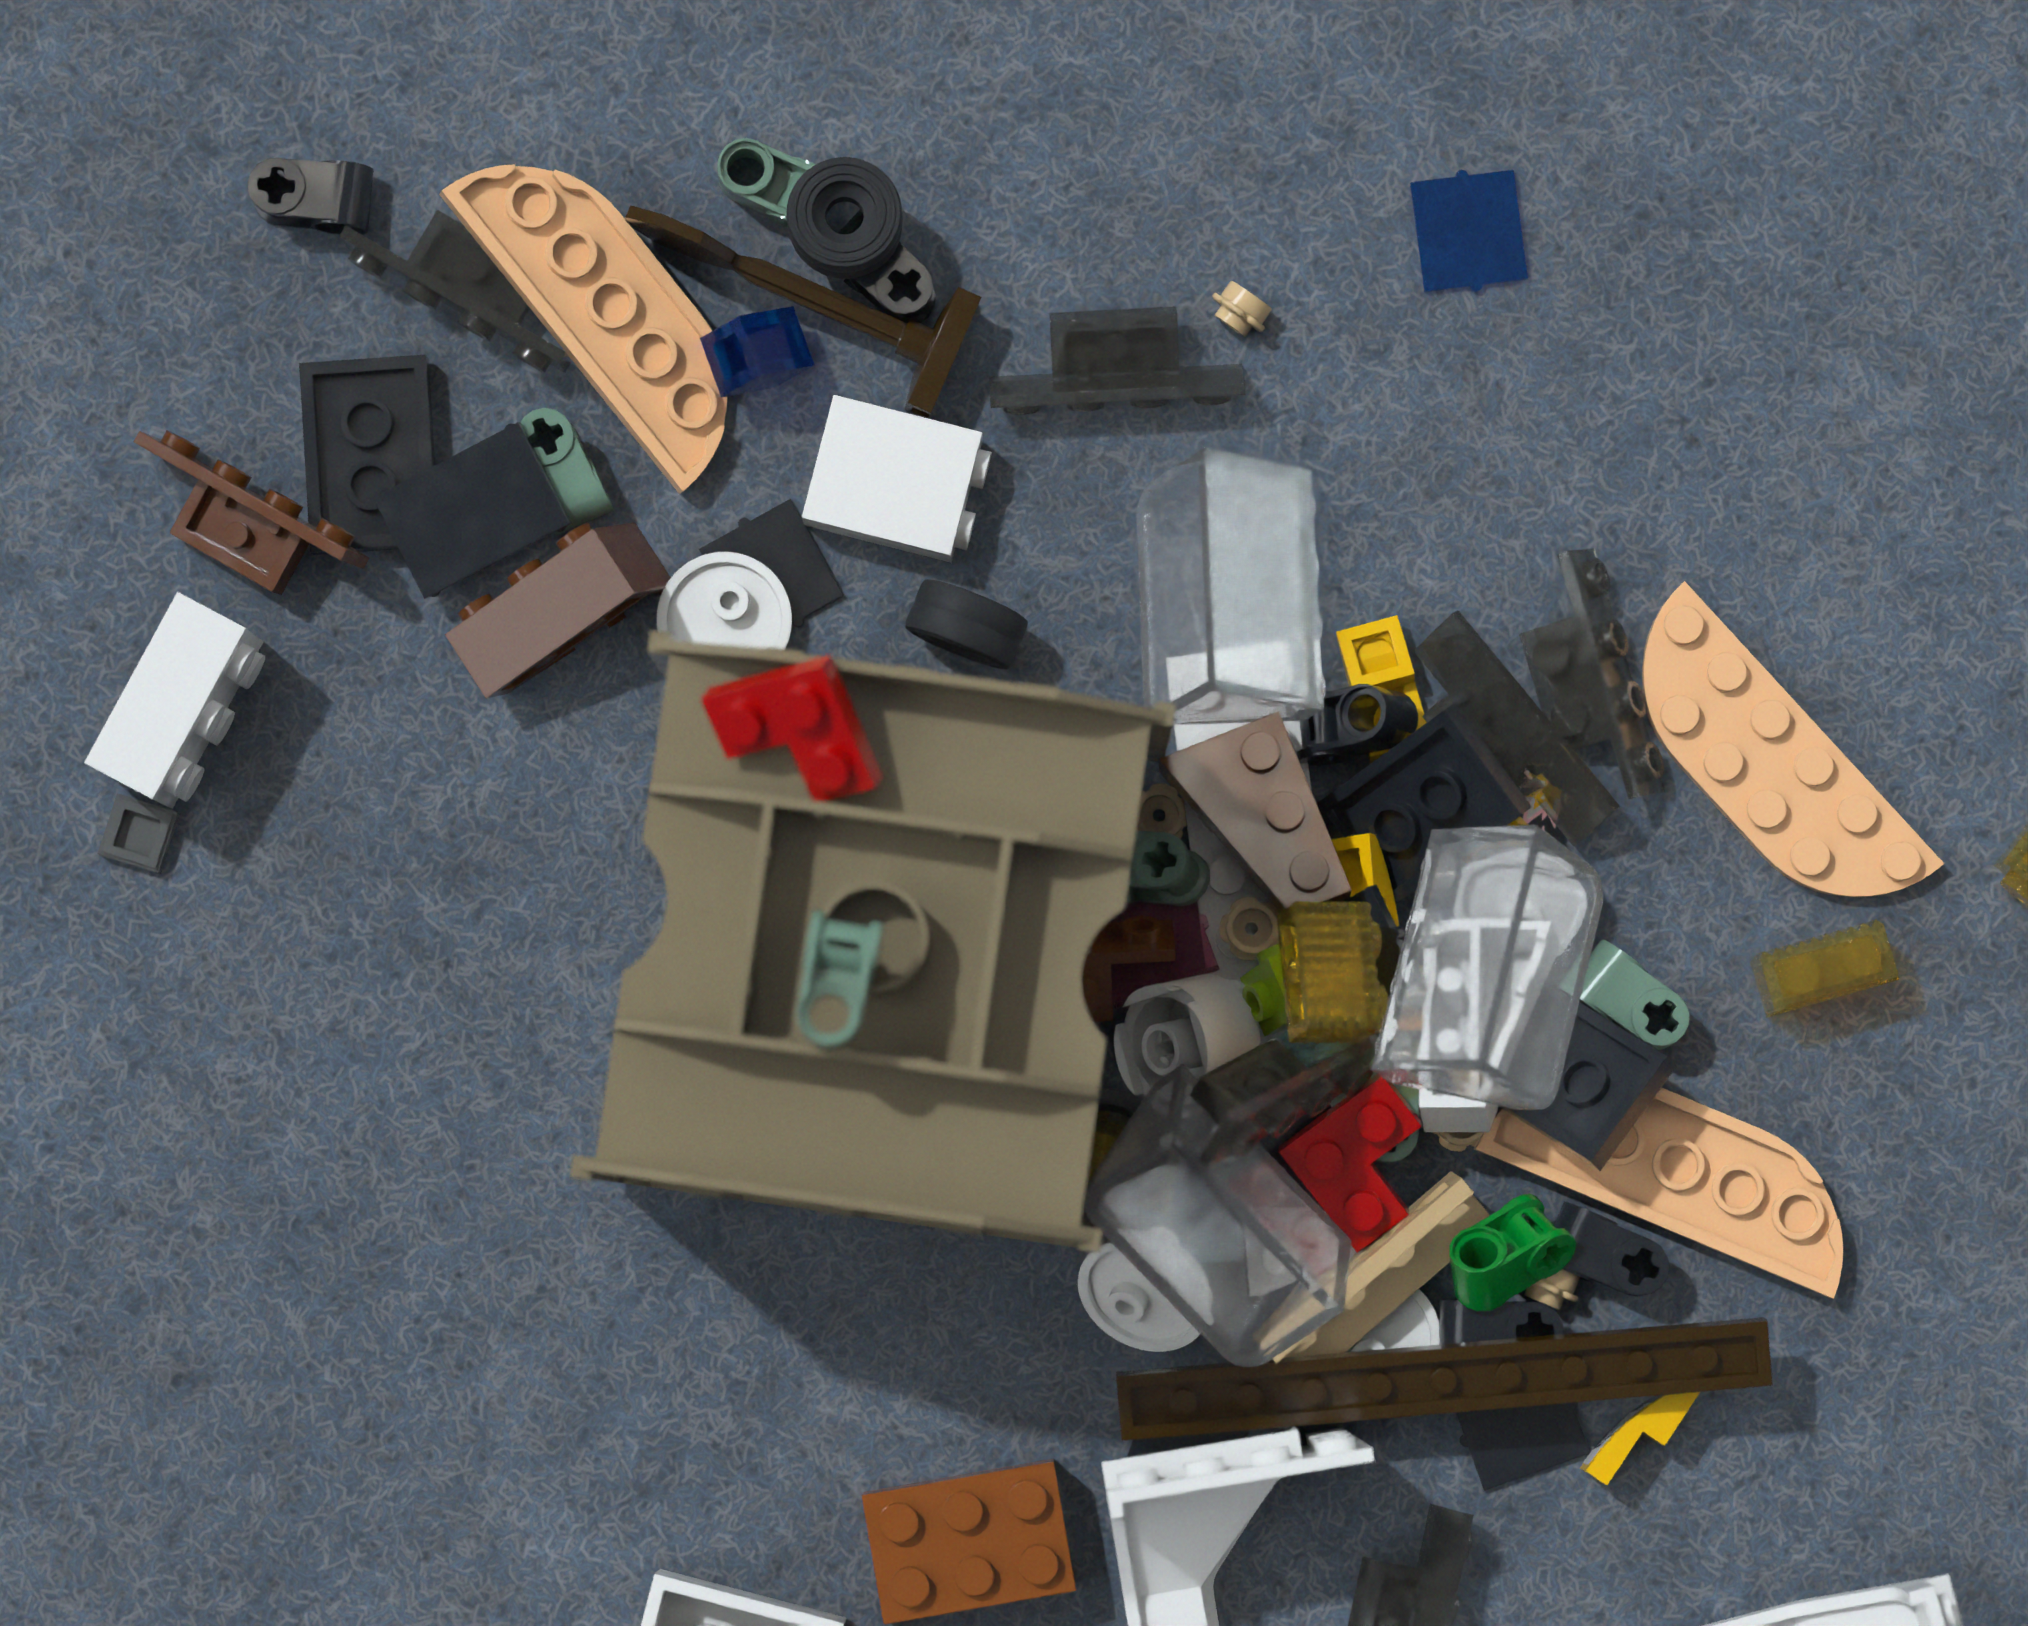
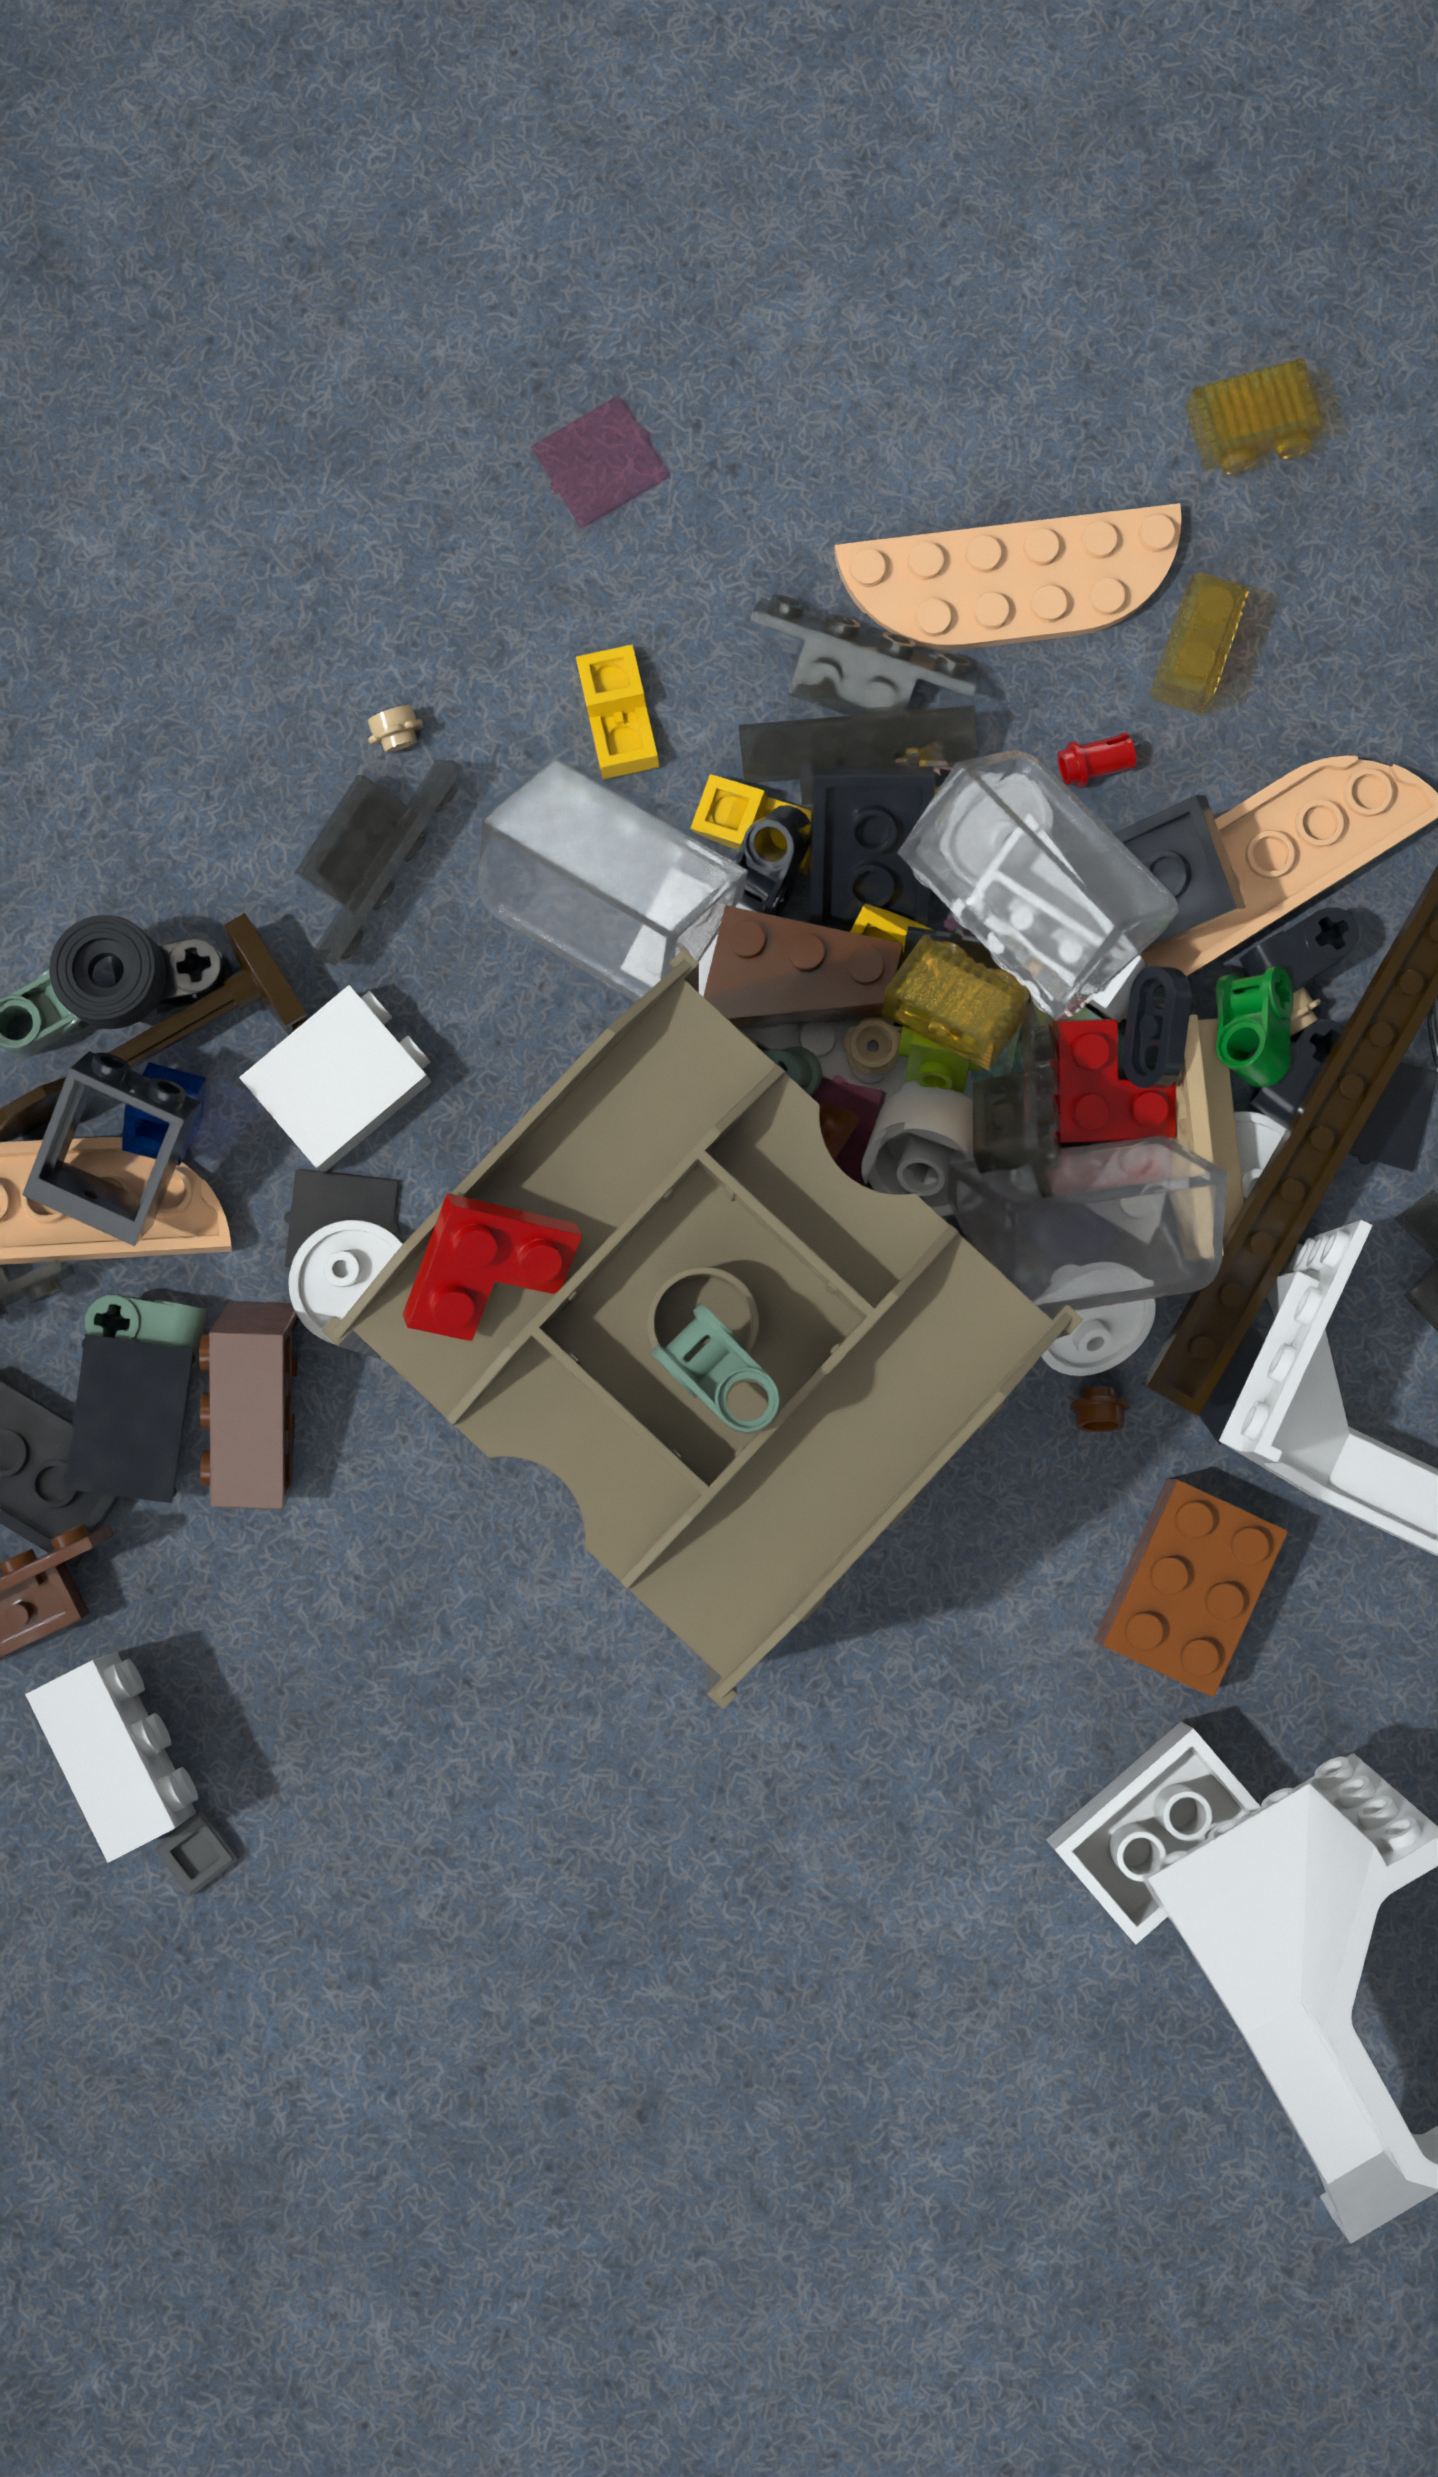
camera: 65 degrees left, 0 degrees up
(639, 344) = (88, 1196): none -> black window
(966, 624) = (487, 1099): black tyre -> none
(1071, 1355) = (1099, 1410): none -> reddish brown plate
(1396, 493) = (617, 711): none -> yellow slope
(1436, 1164) = (1156, 1027): none -> black plate
(1468, 230) = (456, 521): clear blue piece -> none
(1612, 318) = (599, 462): none -> clear pink piece
(1622, 988) = (1117, 799): sand green piece -> none
(1656, 949) = (1096, 759): none -> red pin

